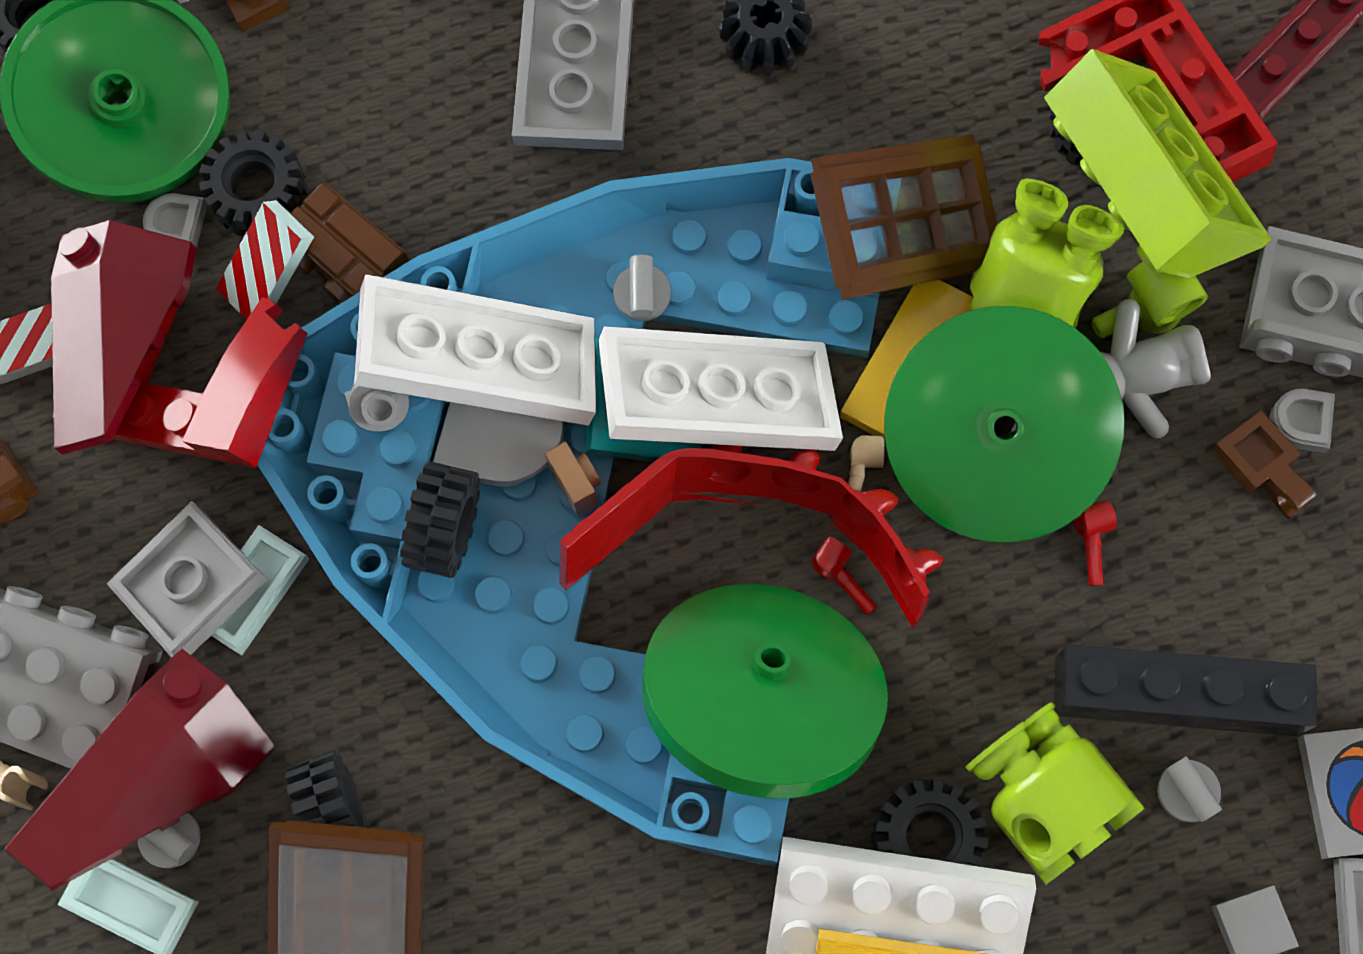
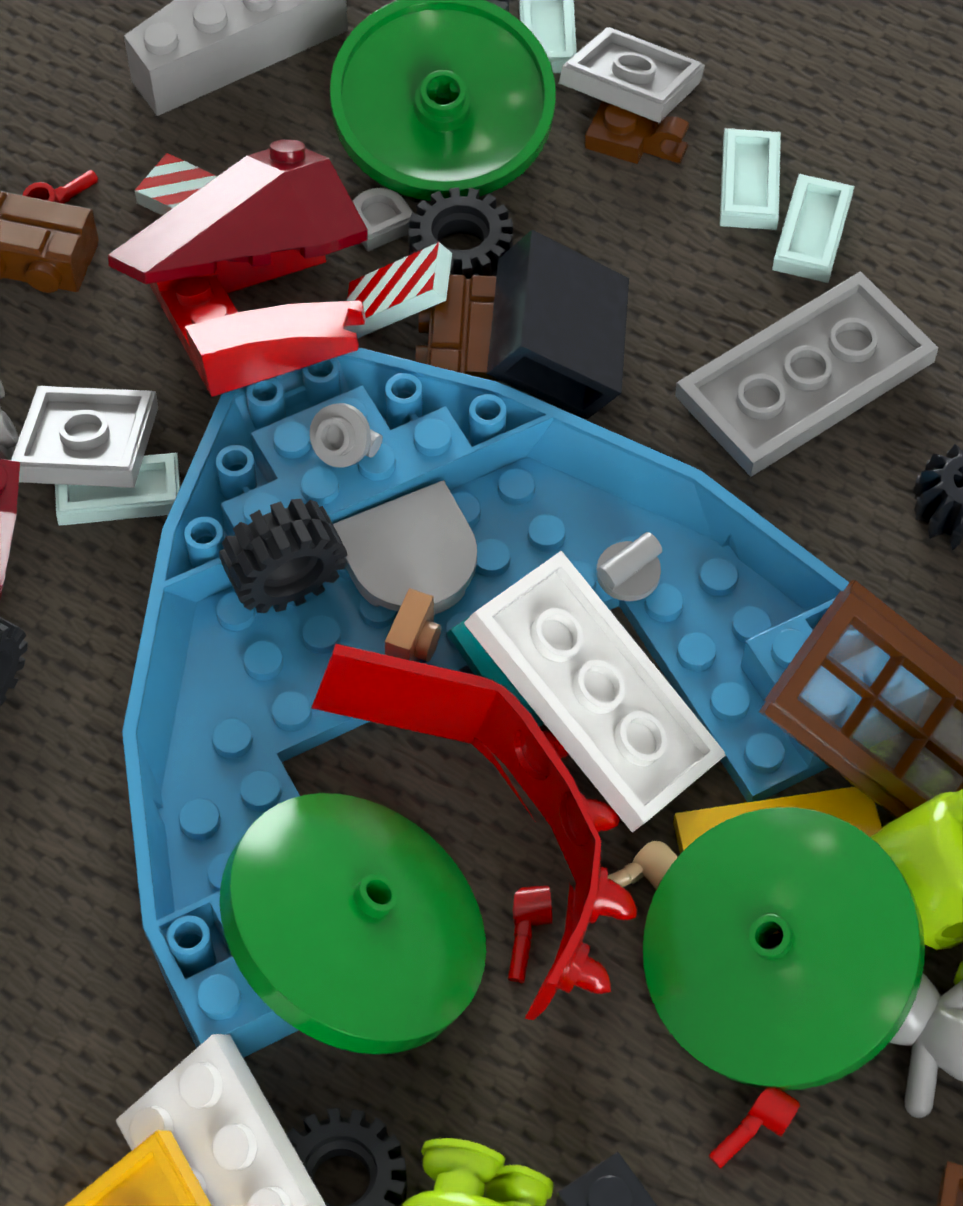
camera: 45 degrees right, 15 degrees down
(398, 176) = (558, 326): none -> black brick
(475, 351) = (449, 471): white plate -> none

